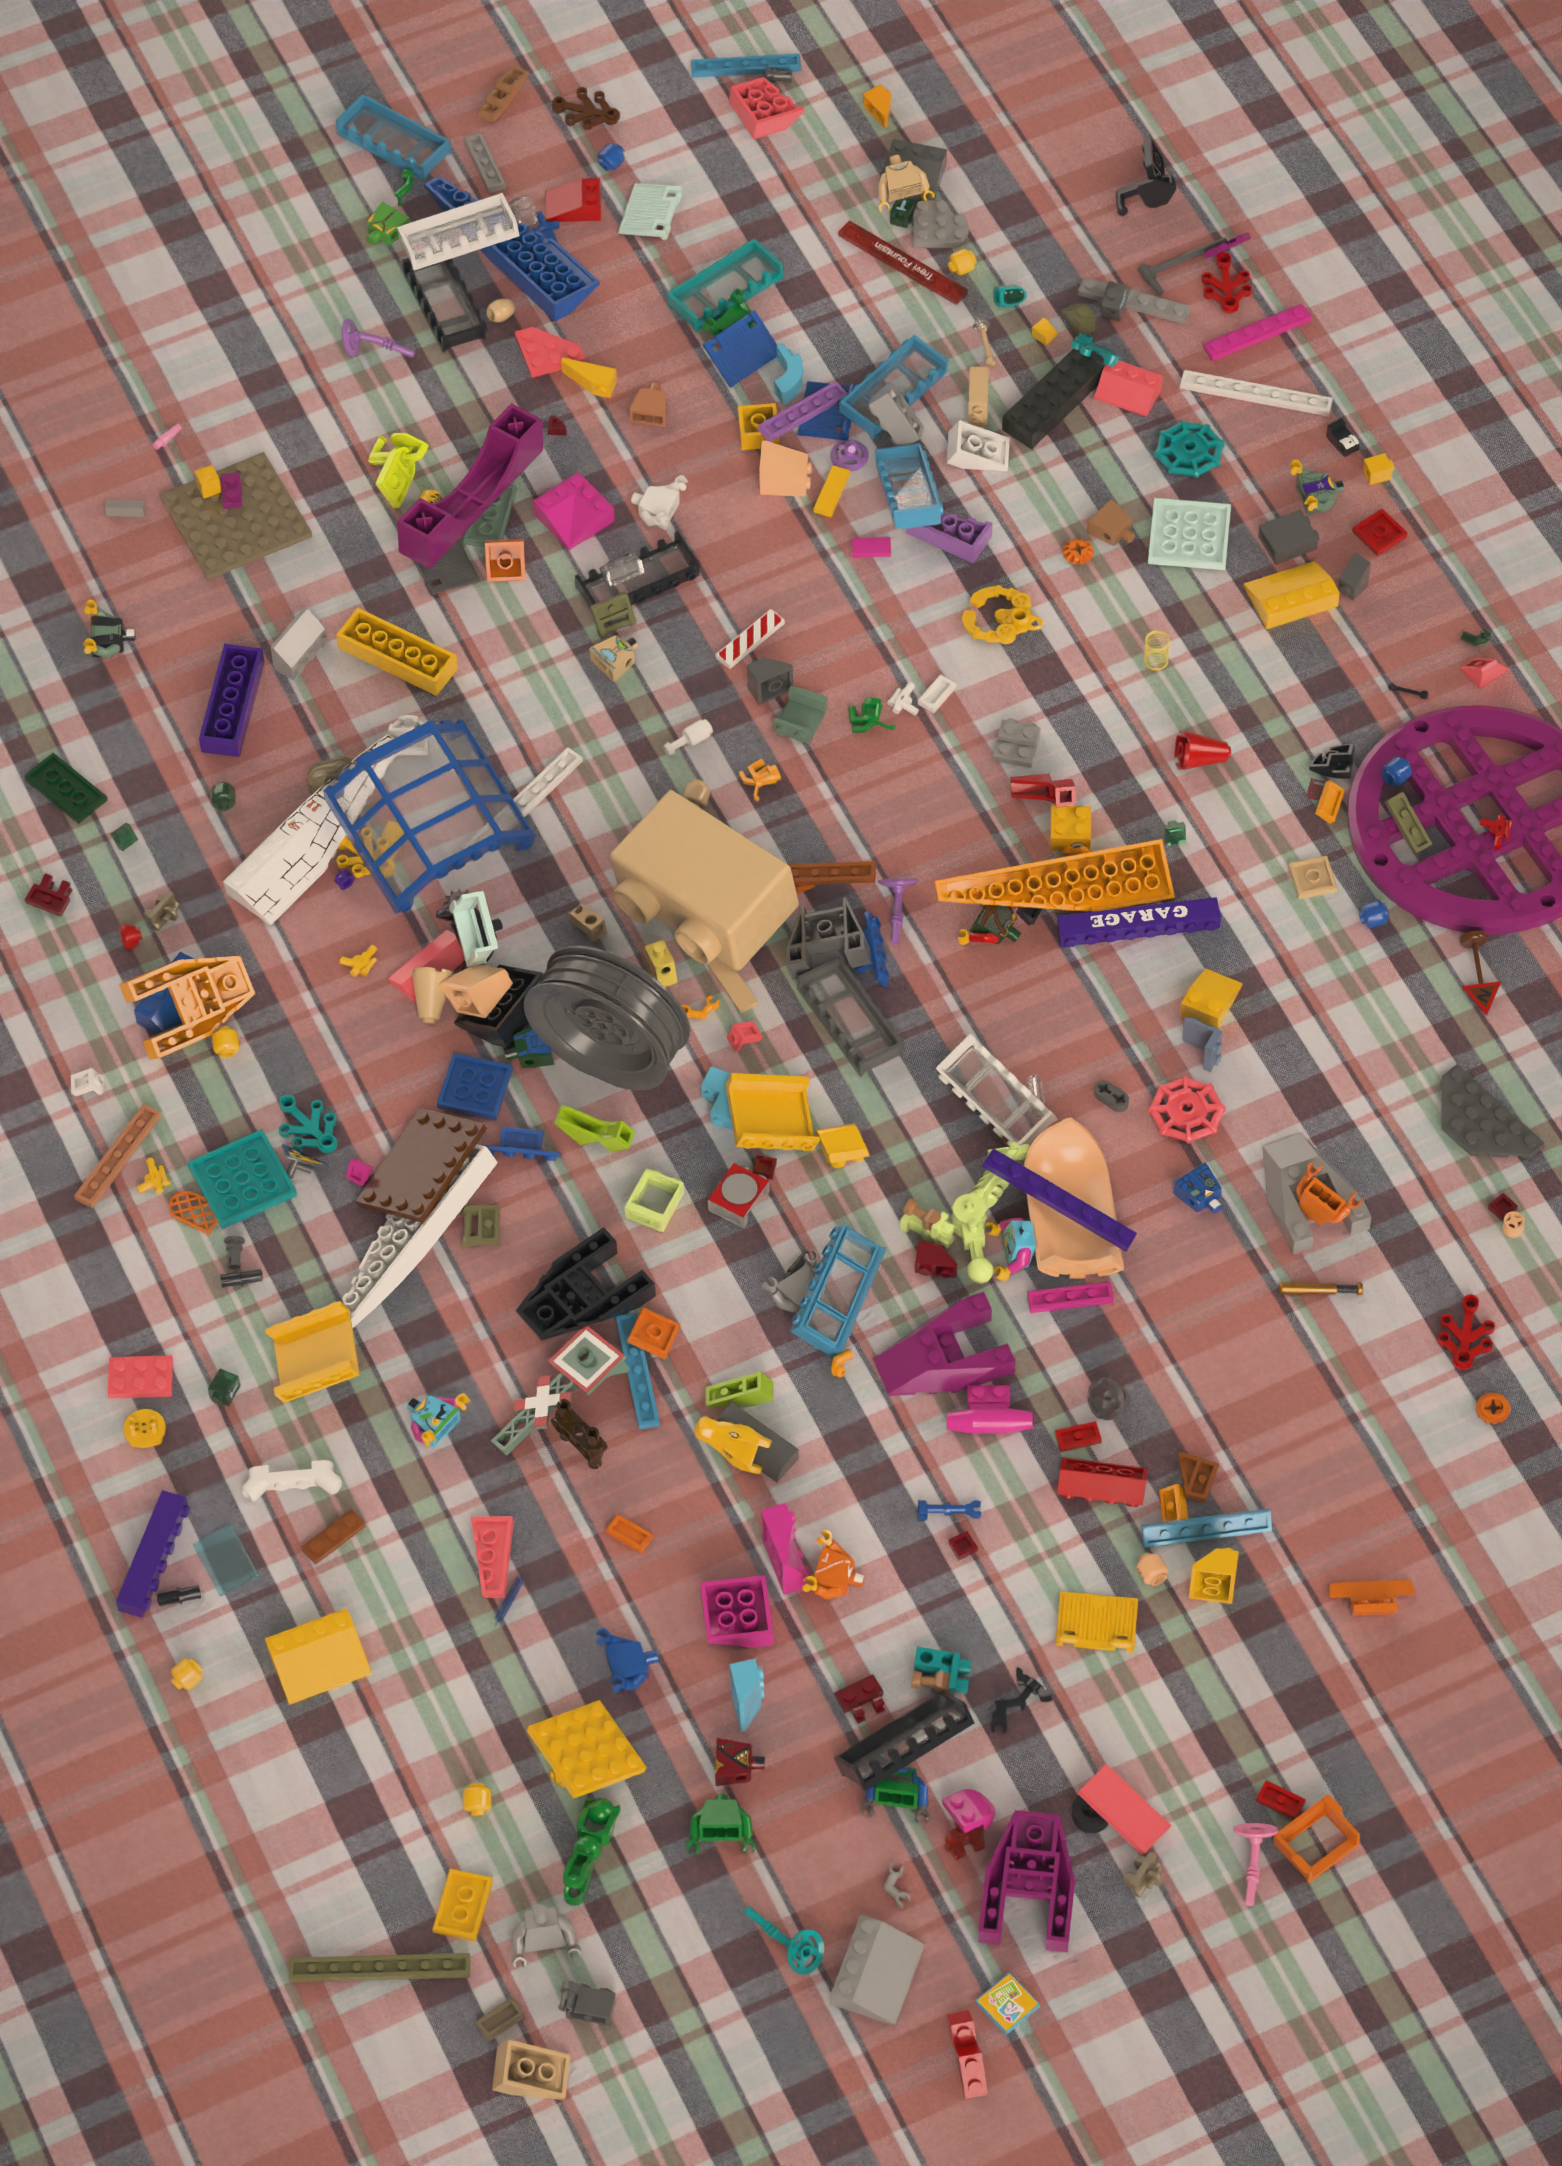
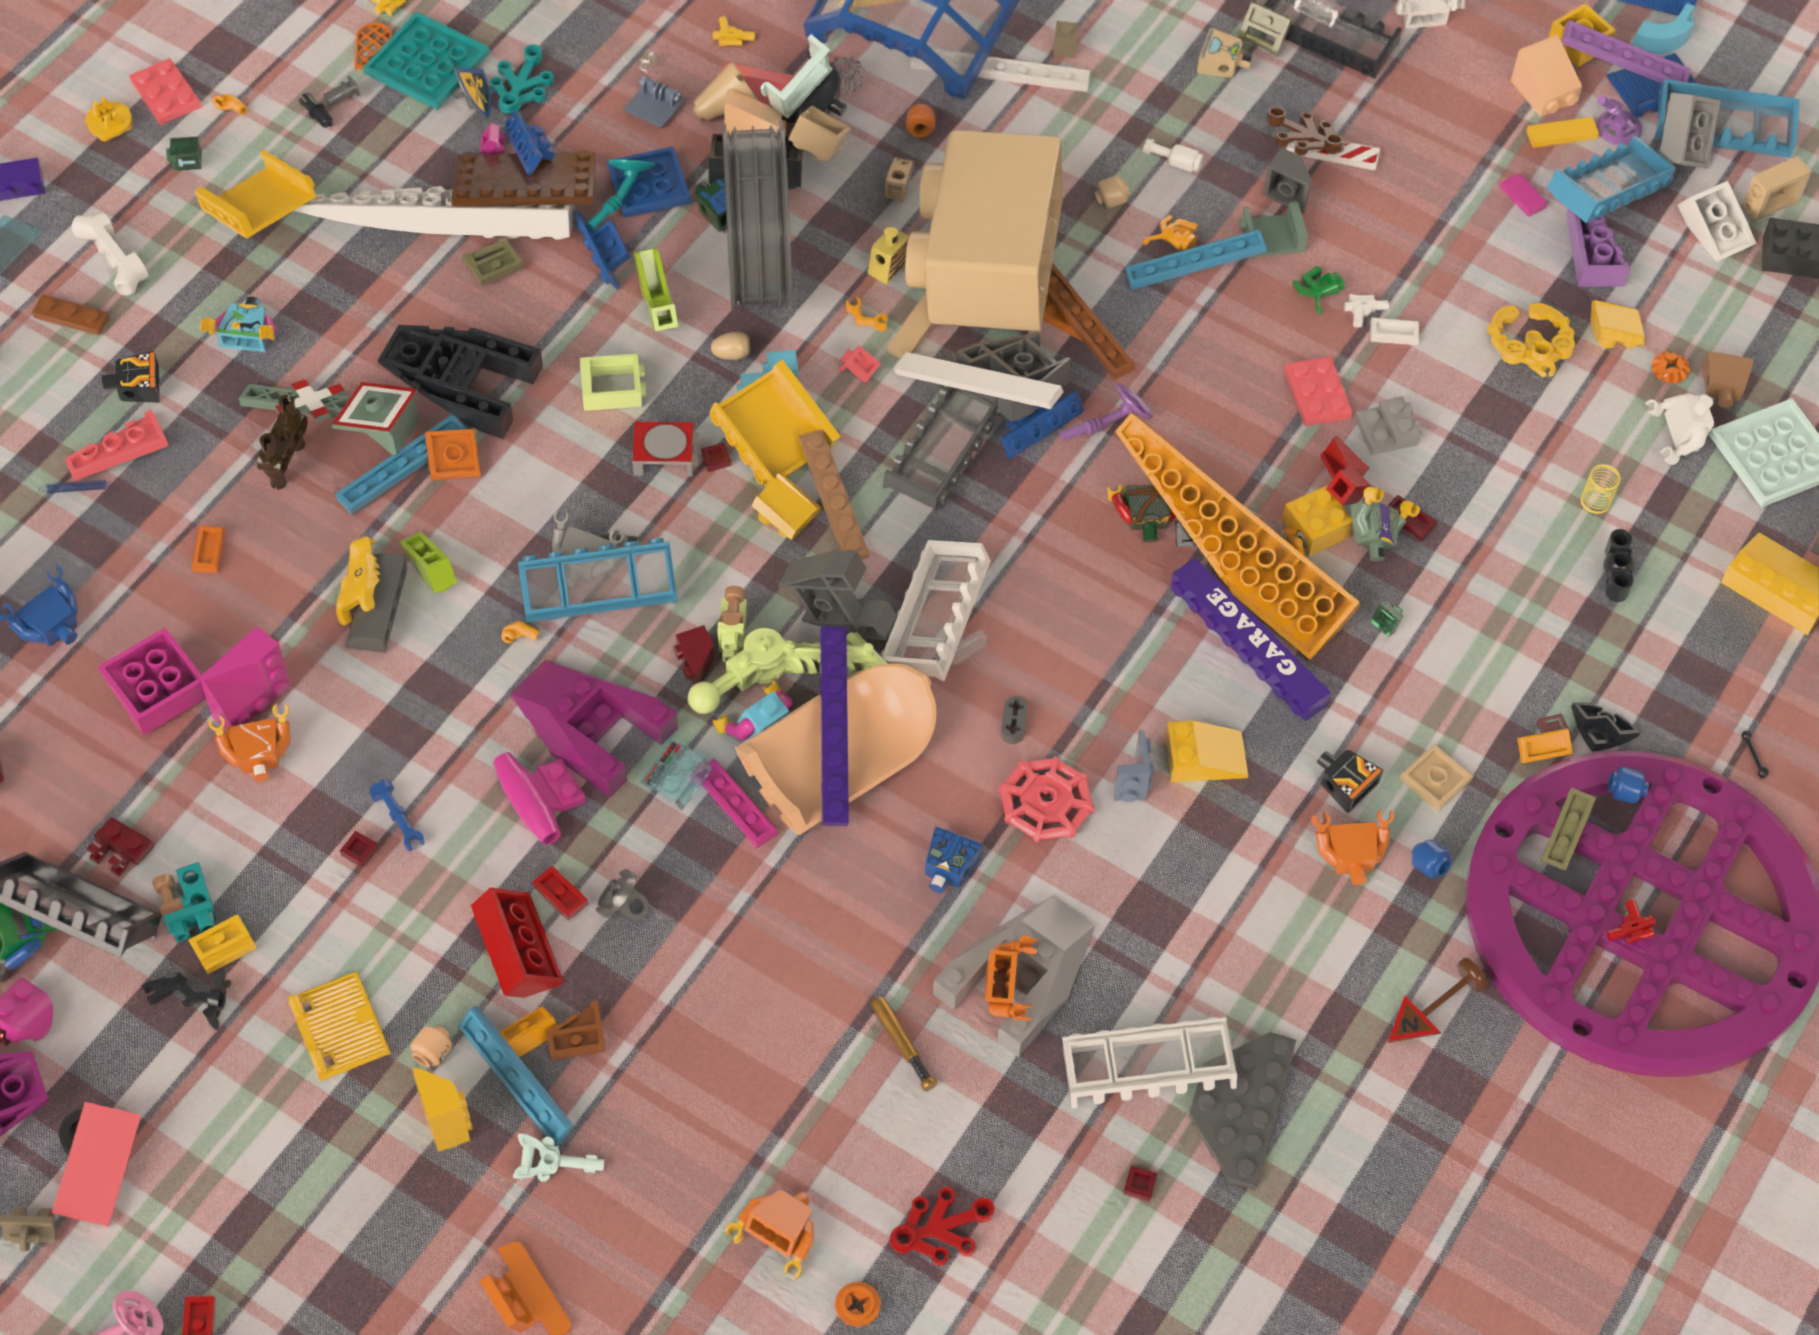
camera: 55 degrees right, 0 degrees up
(186, 1335) = (229, 102): none -> light orange arm
(351, 1028) = (648, 60): none -> clear tile
(385, 1146) = (528, 142): none -> blue bracket
(396, 1045) = (654, 102): none -> sand blue hinge
(435, 1514) = (136, 378): none -> black torso
(466, 1087) = (631, 170): none -> teal dish
(520, 949) = (819, 134): none -> tan piece
(529, 745) = (1065, 39): none -> dark tan brick
(542, 880) = (920, 121): none -> orange head
(674, 1107) = (731, 346): none -> tan animal
(745, 636) = (1331, 142): none -> reddish brown plant
(746, 1690) = (48, 729): medium azure slope -> none
(796, 776) = (1195, 259): none -> dark azure tile
(828, 962) = (979, 380): none -> white tile
(853, 1109) = (832, 493): none -> medium nougat plate
(955, 1142) = (825, 590): none -> dark grey wedge
(957, 768) = (1318, 391): none -> coral plate
(988, 1664) = (222, 944): none -> yellow plate
(1022, 561) = (1616, 325): none -> yellow slope
(1028, 1318) = (676, 774): none -> clear light blue slope
(1099, 775) = (1419, 525): none -> dark red tile
(1101, 794) = (1378, 524): none -> sand green torso
(1135, 567) = (1688, 422): none -> white torso
(1199, 750) = (1508, 590): red cone -> none
(1220, 677) = (1619, 565): none -> black piece
(1282, 1537) = (550, 1159): none -> light aqua piece
(1284, 926) = (1348, 778): none -> black torso
(1338, 951) = (1353, 847): none -> orange torso
(1413, 1421) = (780, 1223): none -> orange torso
(1424, 1153) = (1149, 1059): none -> window
(1516, 1219) = (1119, 1199): light nougat wheel -> none

